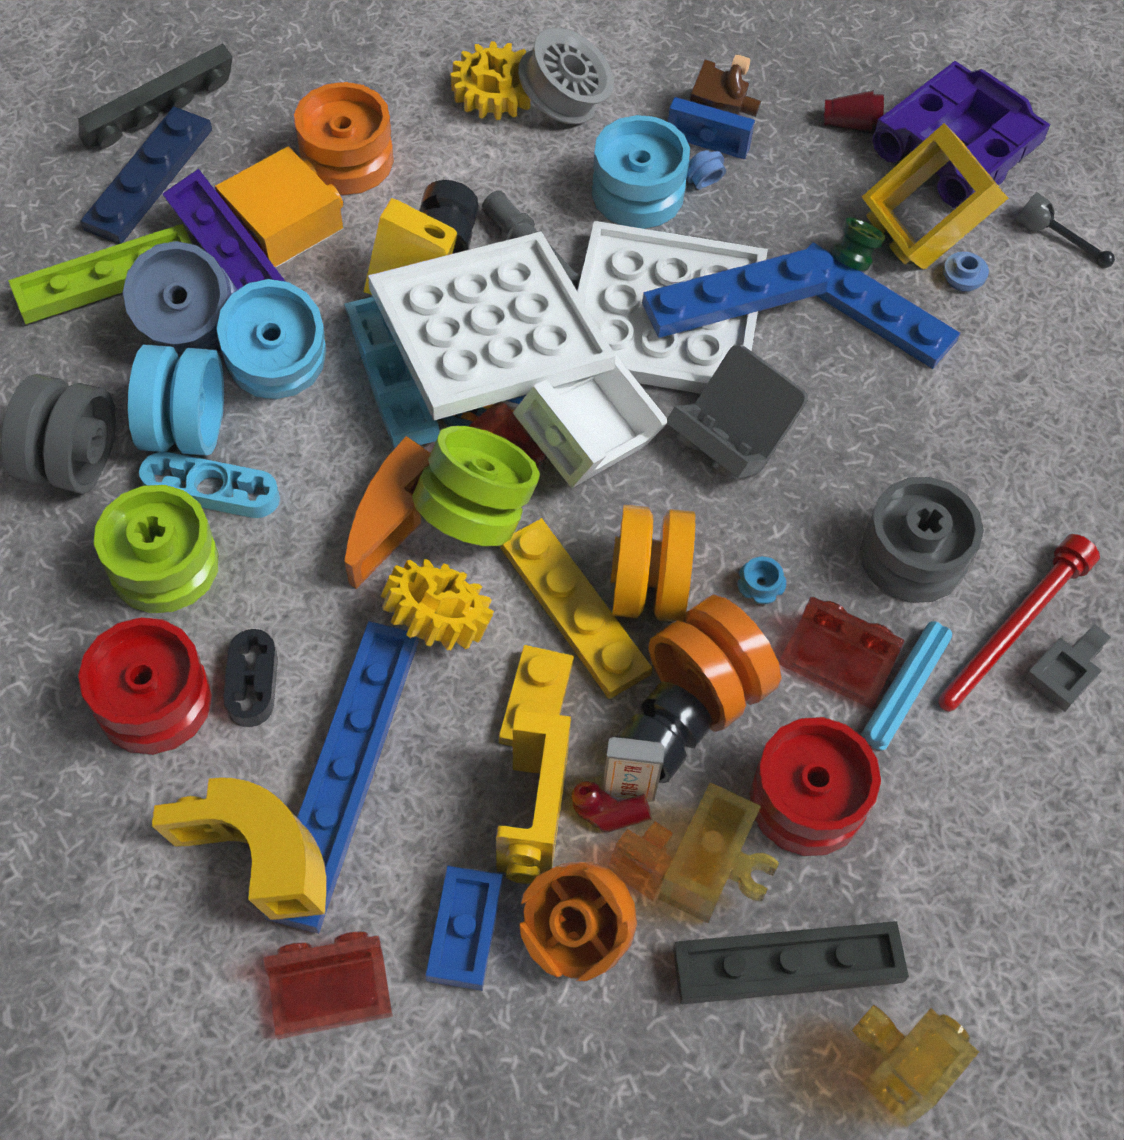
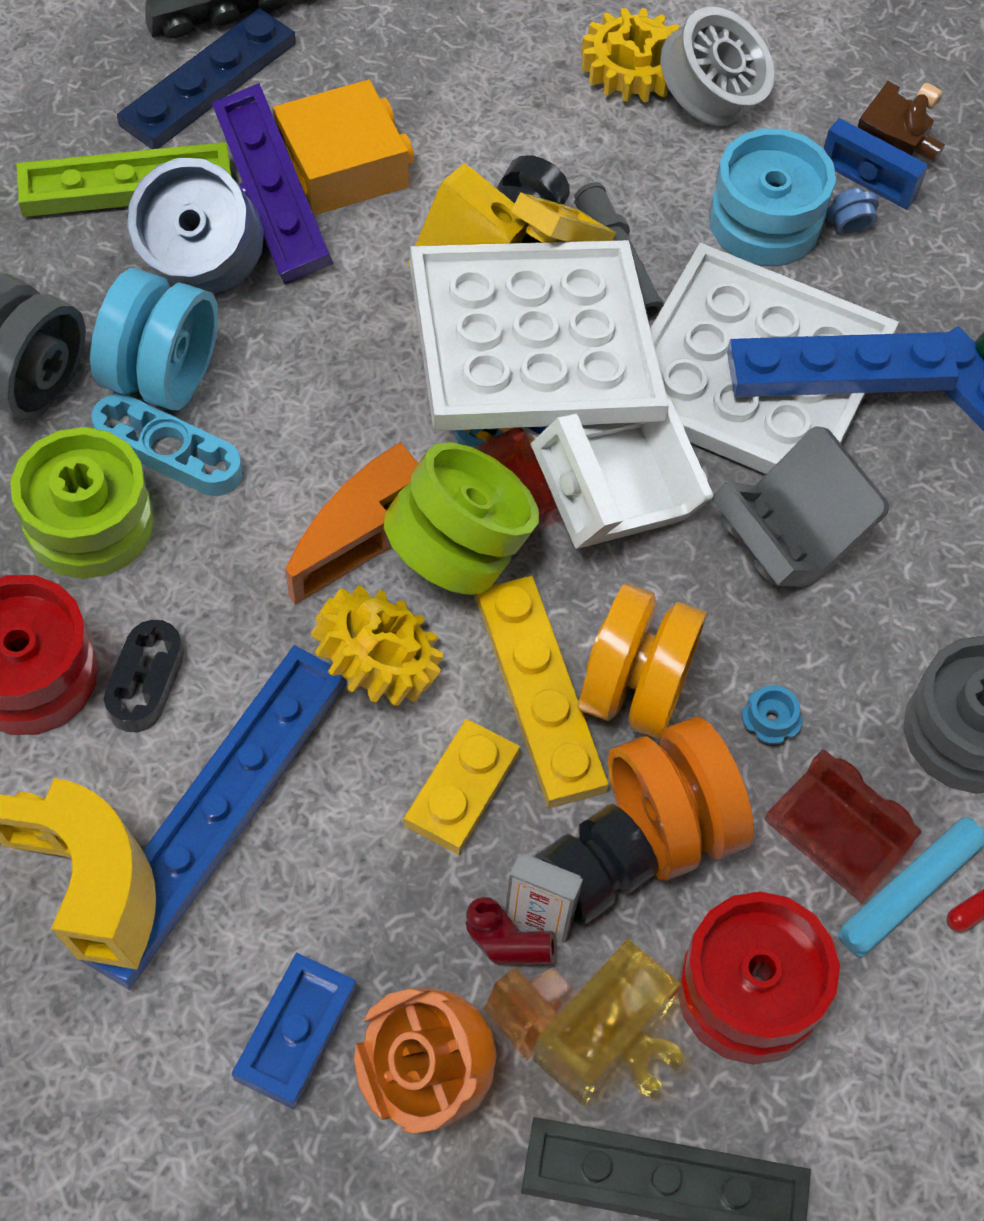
camera: 15 degrees right, 0 degrees up
(272, 339) = (282, 294): medium azure wheel -> none
(328, 984) = (120, 1052): clear red bracket -> none
(345, 136) = (439, 82): orange wheel -> none
(389, 377) = (406, 390): medium azure slope -> none
(480, 230) = (558, 222): none -> yellow plate
(540, 748) = (448, 845): yellow panel -> none

